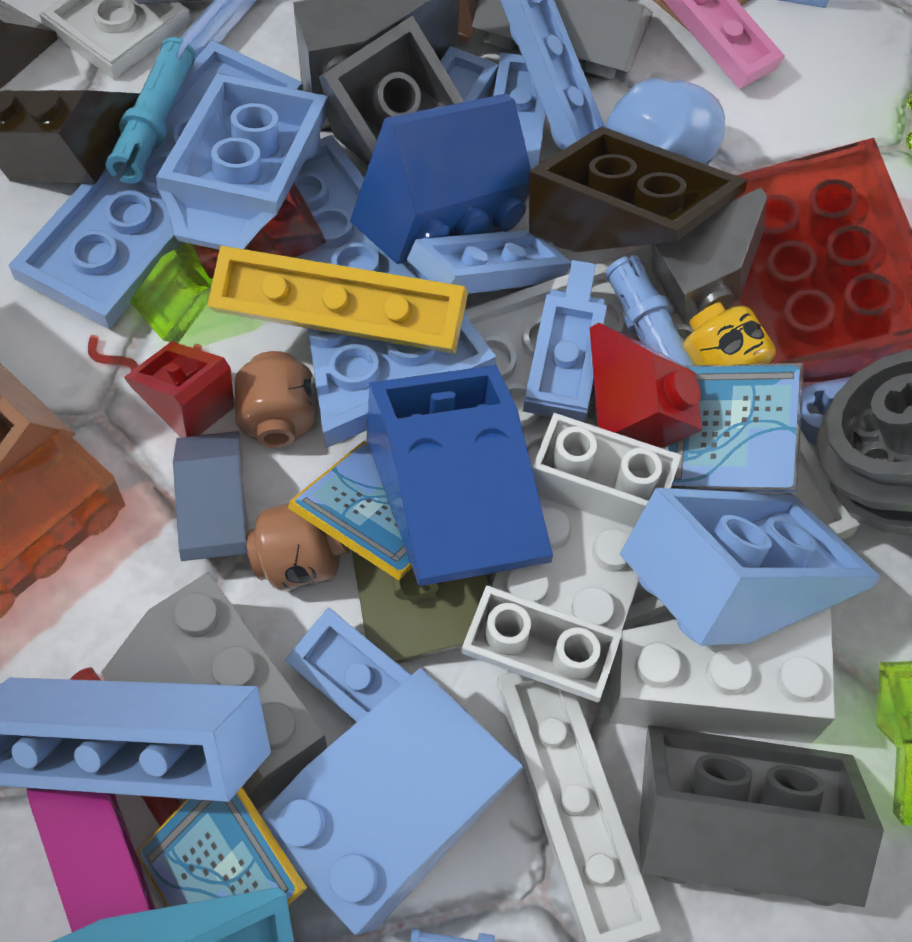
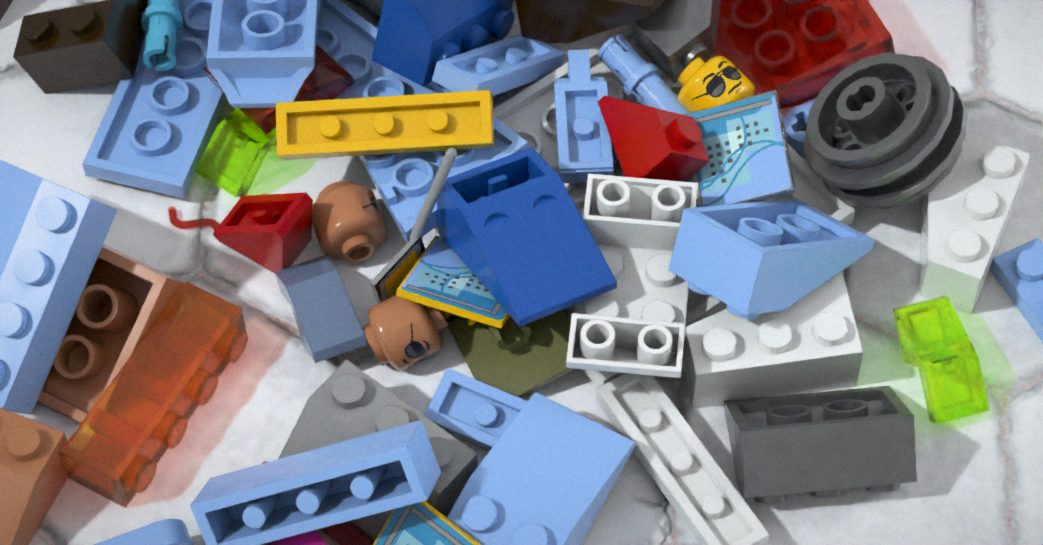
camera: 10 degrees left, 5 degrees down
(309, 468) = (393, 274): none -> light grey piece

